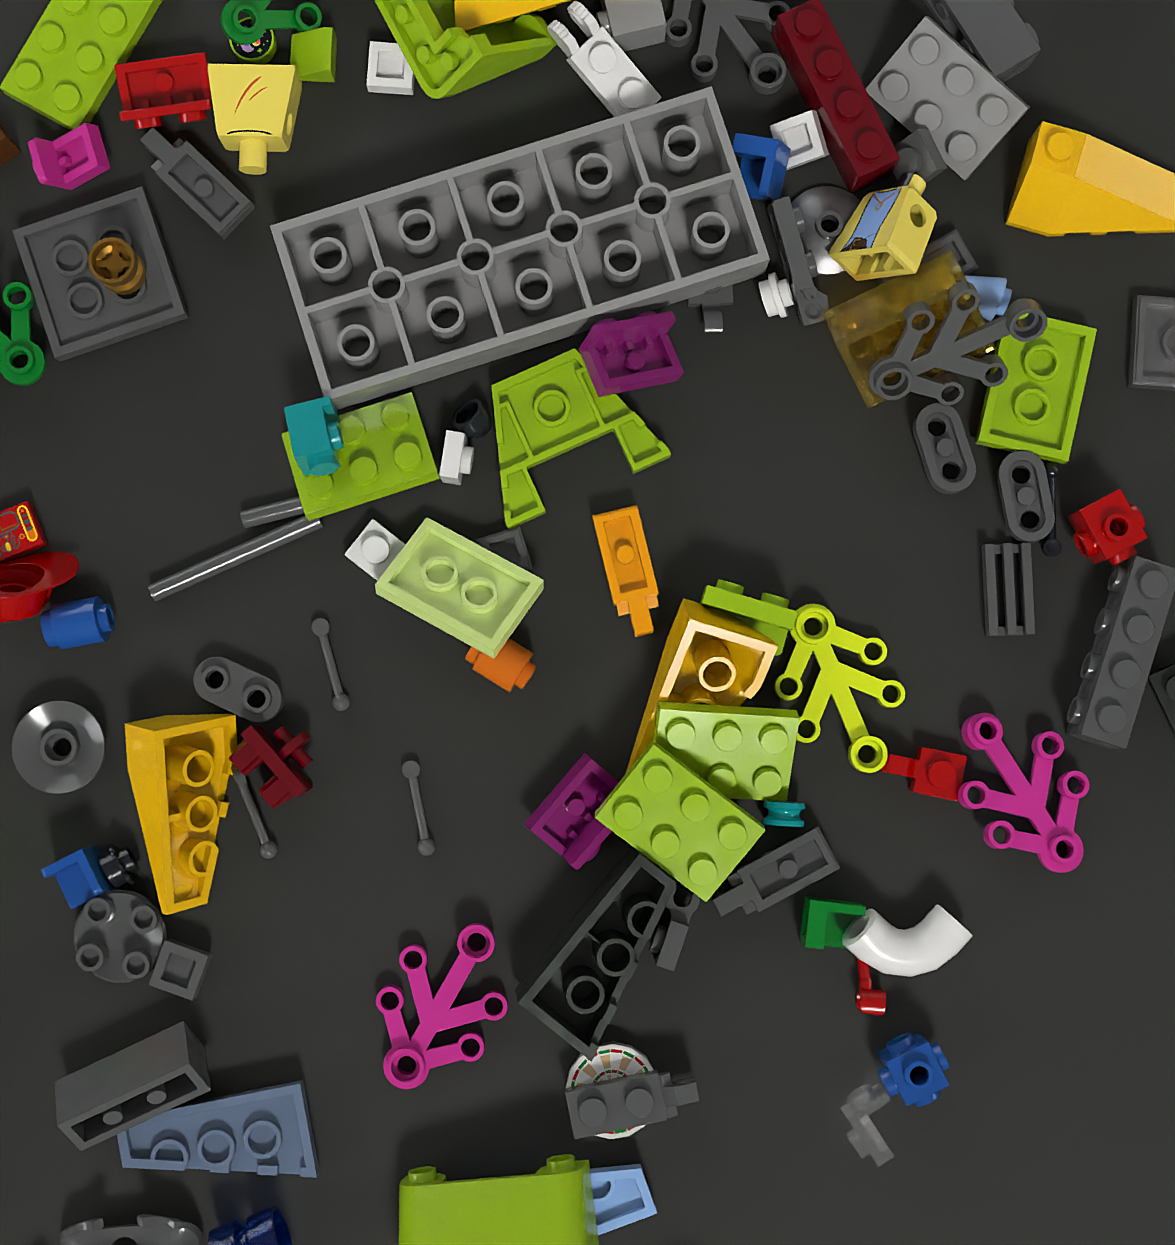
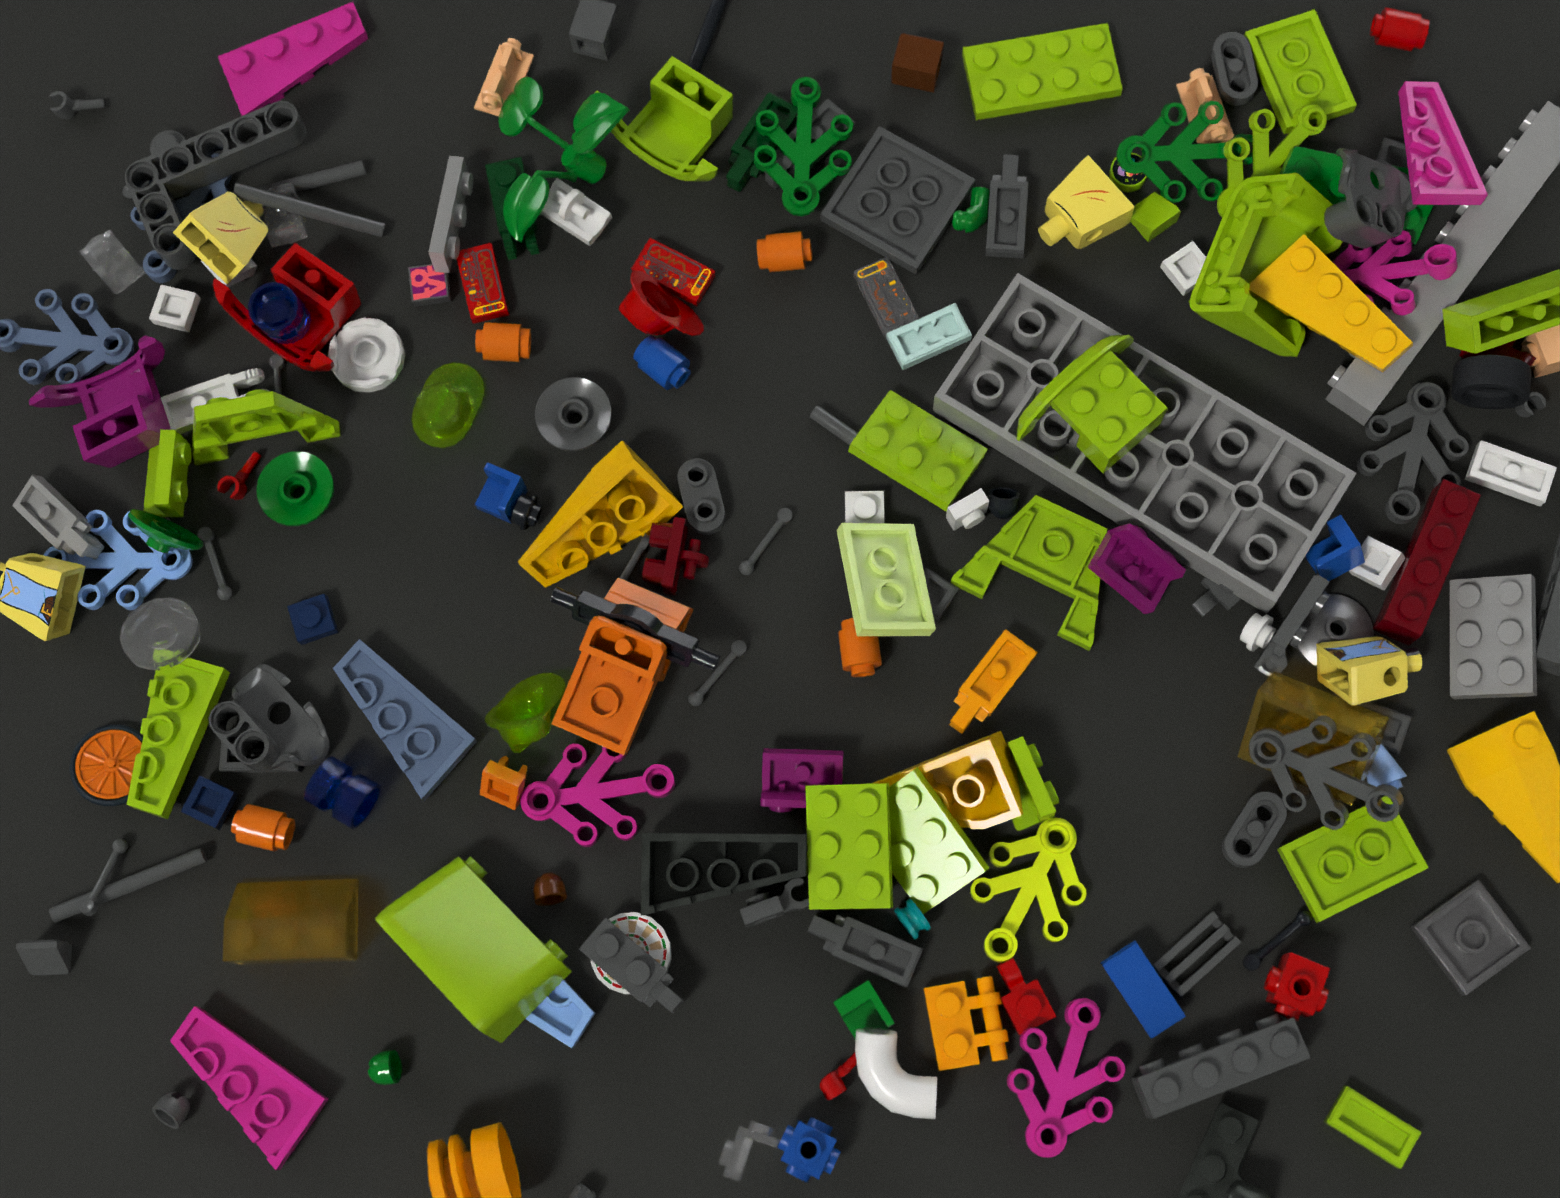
camera: 60 degrees right, 10 degrees down
(53, 1150) = (312, 619): none -> dark blue plate
(63, 421) = (784, 251): none -> orange brick
(70, 158) = (954, 123): dark pink bracket -> none
(110, 258) = (911, 195): pearl gold wheel -> none
(119, 936) = (480, 549): dark grey dish -> none
(131, 1086) = (391, 631): dark grey brick -> none
(164, 89) = (1049, 143): red bracket -> none
(177, 214) = (976, 214): none -> green arm
(180, 969) = (489, 603): dark grey plate -> none
(188, 363) = (885, 295): none -> clear tile
(233, 557) = (785, 425): dark grey bar -> none
(259, 355) = (929, 336): none -> light aqua plate
(310, 1015) = (526, 710): none -> clear neon green piece
(315, 435) = (906, 408): teal brick -> none
(337, 889) = (621, 659): none -> orange piece
(364, 1089) = (503, 783): none -> orange tile
(460, 258) = (1100, 402): none -> lime piece
(495, 1120) = (549, 890): none -> reddish brown hinge
(603, 64) = (1310, 396): white hinge -> none
(902, 853) = (953, 1027): none -> light orange plate
(919, 156) = (1437, 650): dark grey plate -> none
(1003, 662) = (1143, 989): none -> blue slope
(1027, 497) = (1270, 914): dark grey plate -> none

